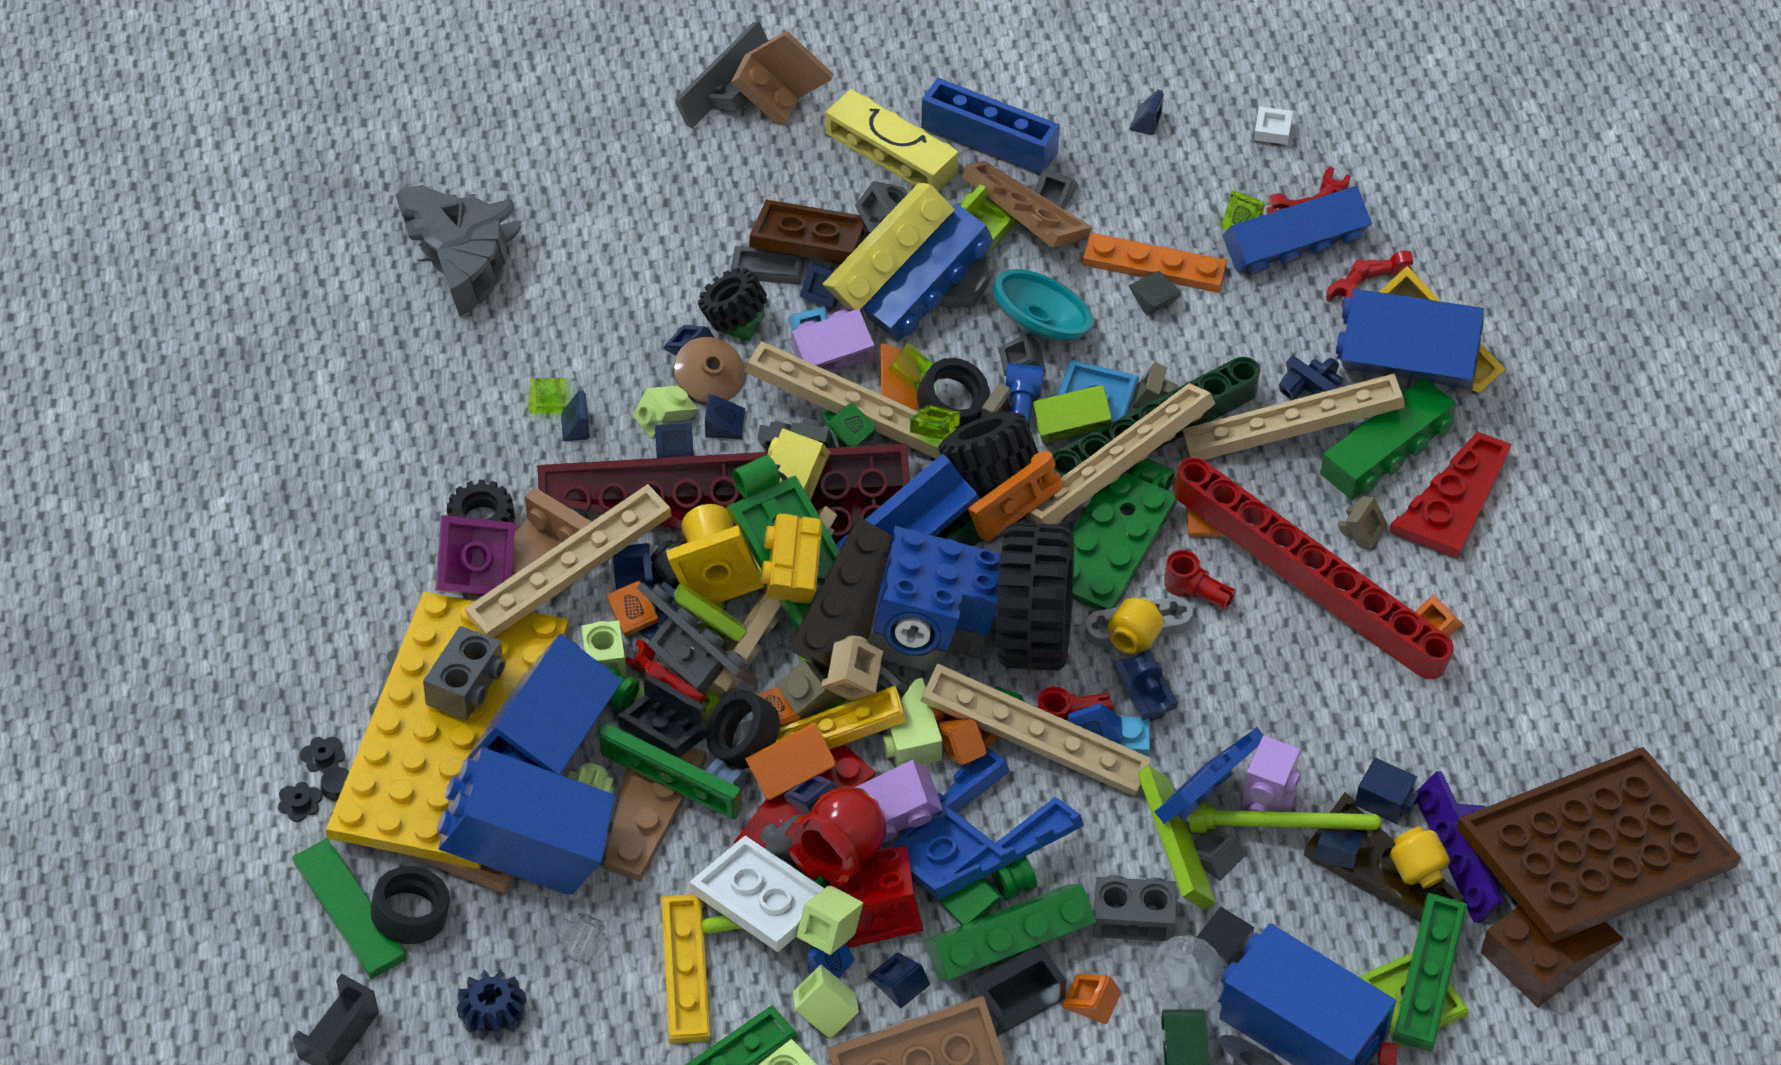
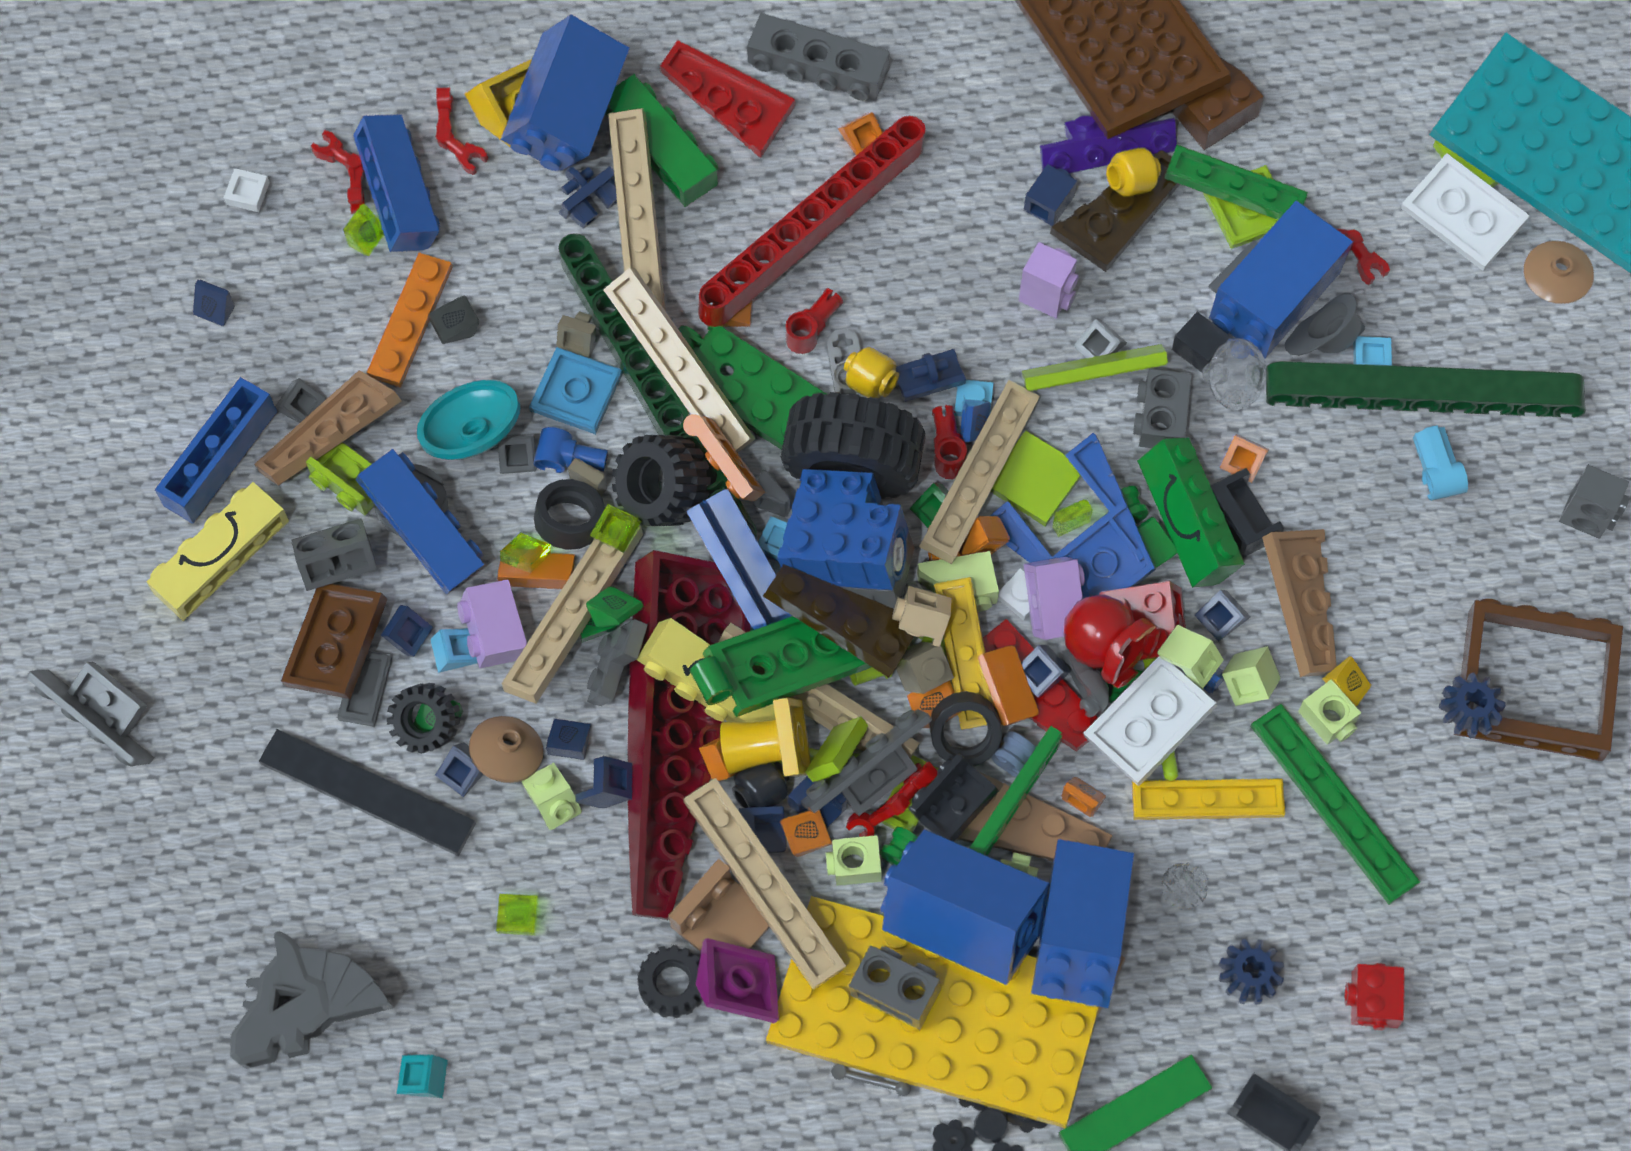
camera: 85 degrees left, 15 degrees up
(394, 341) = (422, 1076): none -> teal slope
(403, 928) = (1144, 1074): black tyre -> none
(575, 419) = (555, 884): dark blue slope -> none
(663, 277) = (367, 792): none -> black tile
(682, 847) = (1082, 796): none -> orange slope
(779, 75) = (116, 661): medium nougat bracket -> none
(793, 558) = (808, 654): yellow brick -> none
(888, 246) = (395, 549): light yellow brick -> none
(993, 820) = (1072, 517): none -> clear neon green tile
(1035, 783) = (1036, 478): none -> lime tile
(1072, 414) = (607, 407): lime panel -> none
(1207, 778) = (1046, 328): blue wing -> none
(1208, 817) = (1071, 342): lime piece -> none
(1339, 847) = (1112, 235): dark blue slope -> none
(1364, 522) = (755, 173): dark tan tile -> none
(1517, 569) = (806, 44): none -> dark grey brick

